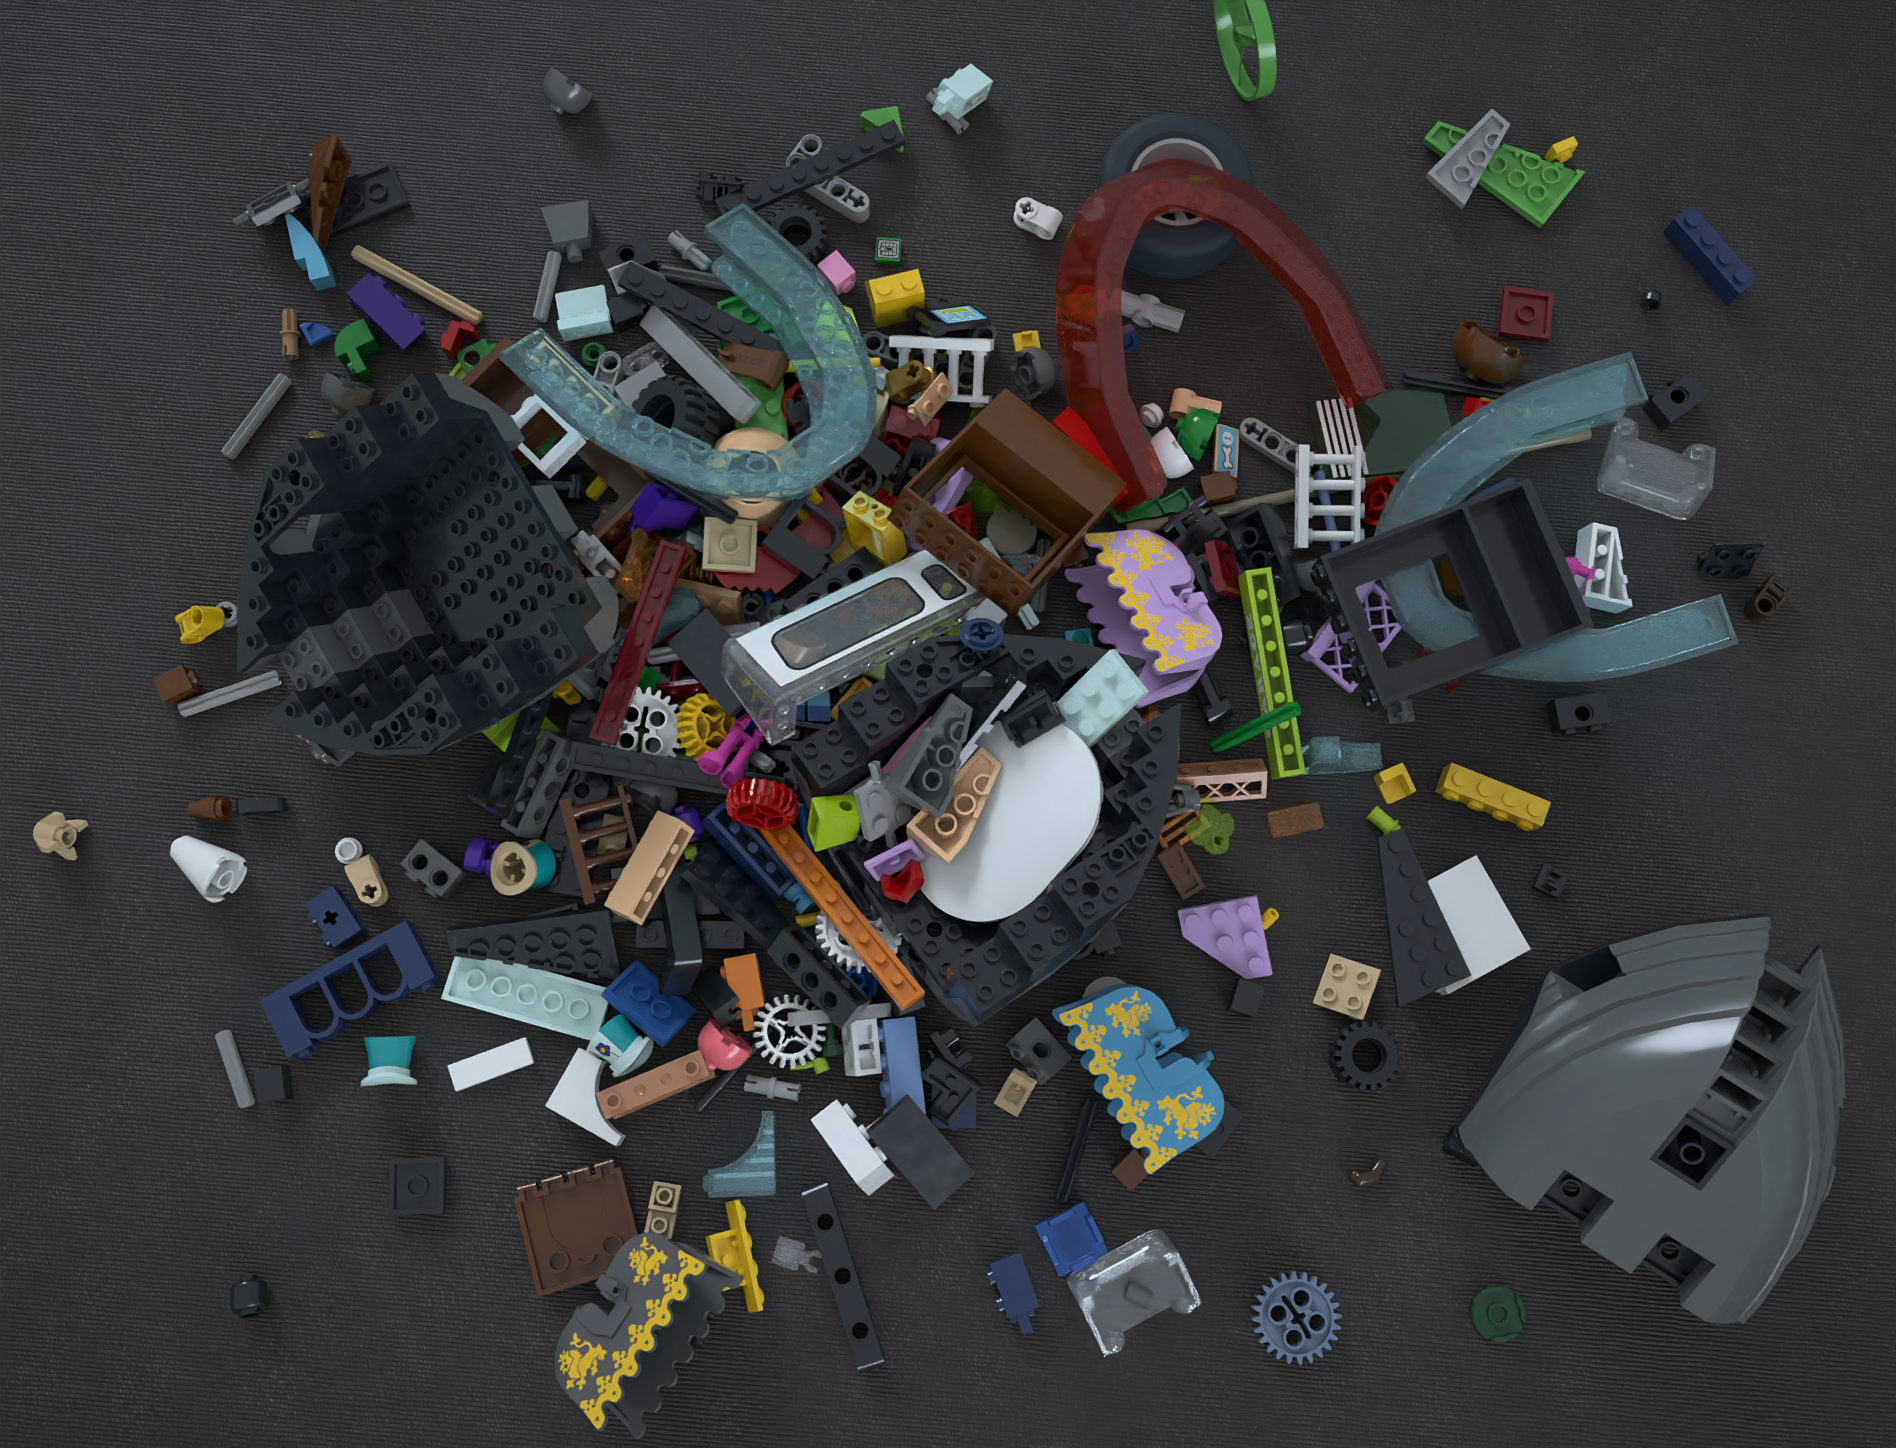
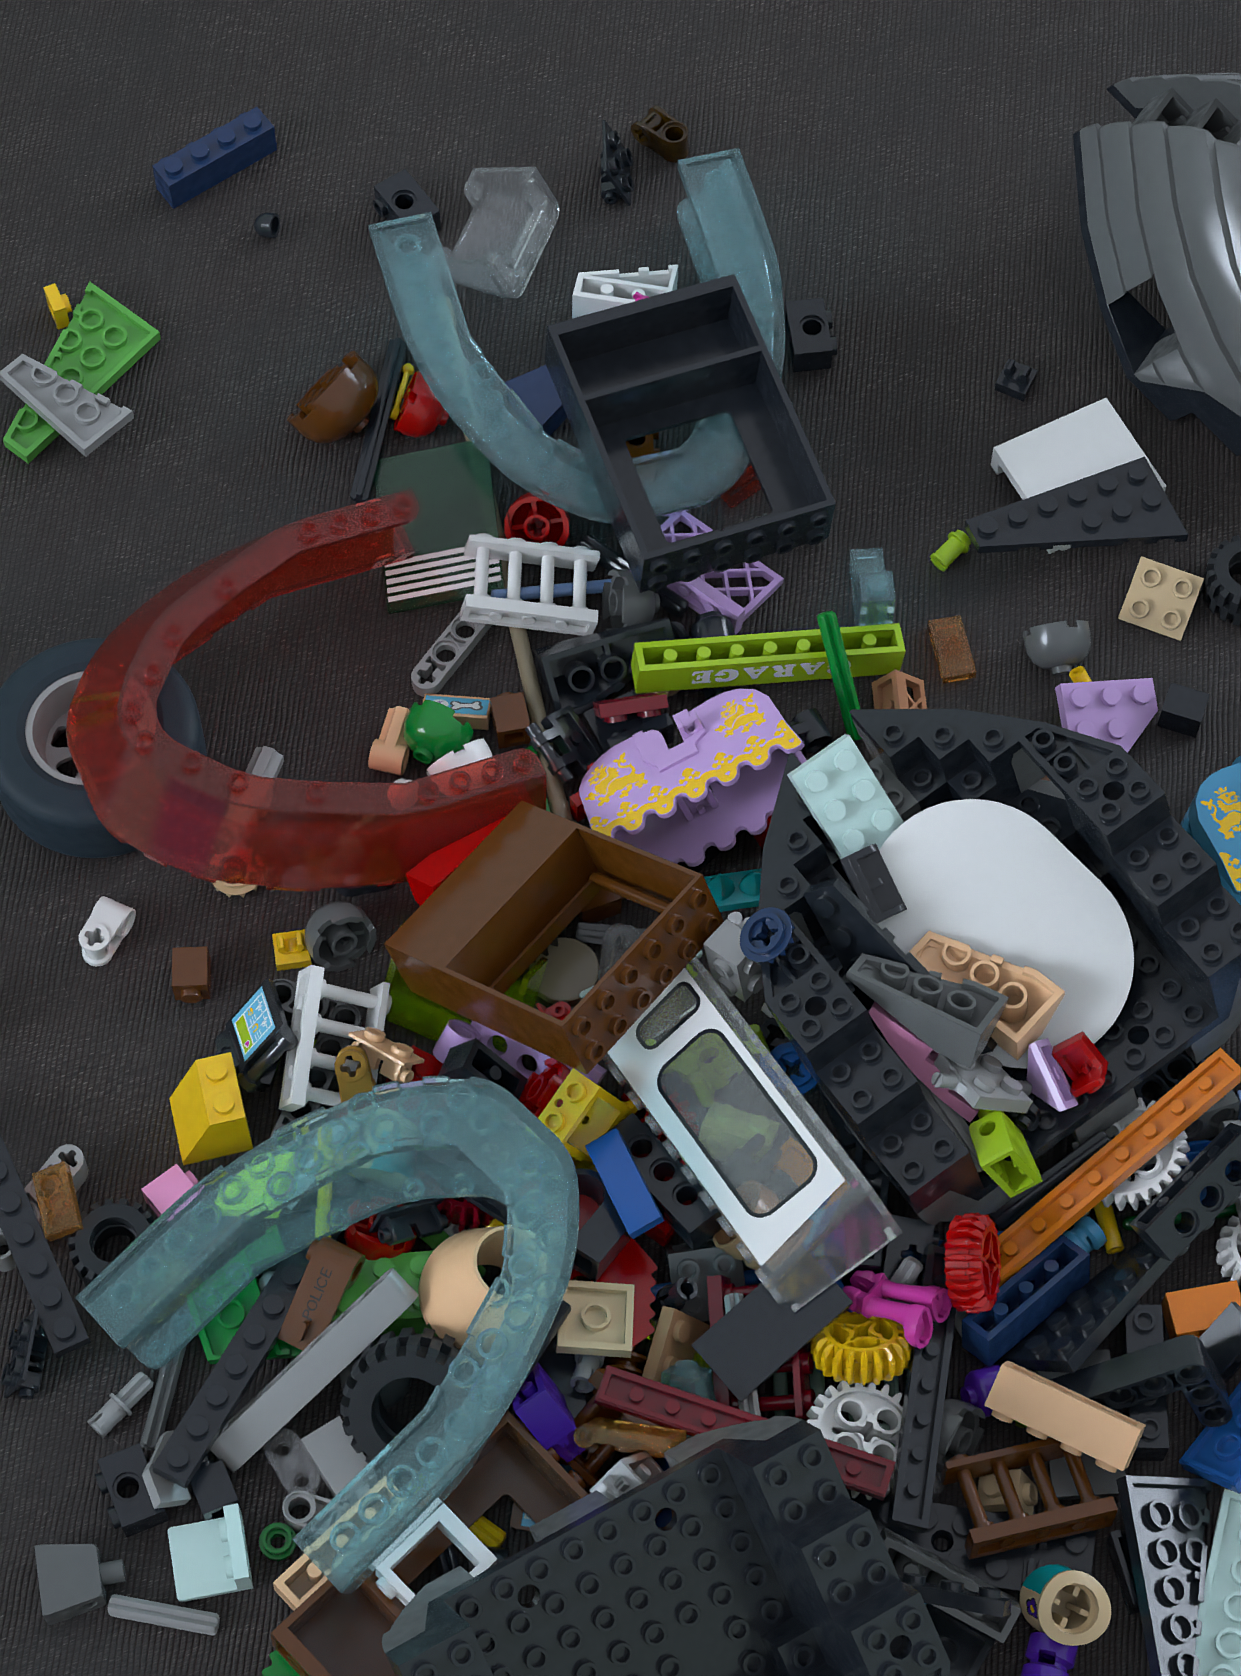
camera: 85 degrees left, 15 degrees down
(823, 194) = (57, 1201): none -> clear orange plate
(824, 560) = (624, 1183): none -> blue tile
(888, 251) = (137, 1129): tile -> none
(1003, 277) = (191, 974): none -> reddish brown brick
(1296, 901) = (1058, 645): none -> dark grey cylinder
(1394, 783) = (900, 535): yellow panel -> none
(1493, 797) = (916, 430): yellow brick -> none
(1525, 314) = (280, 359): dark red plate -> none

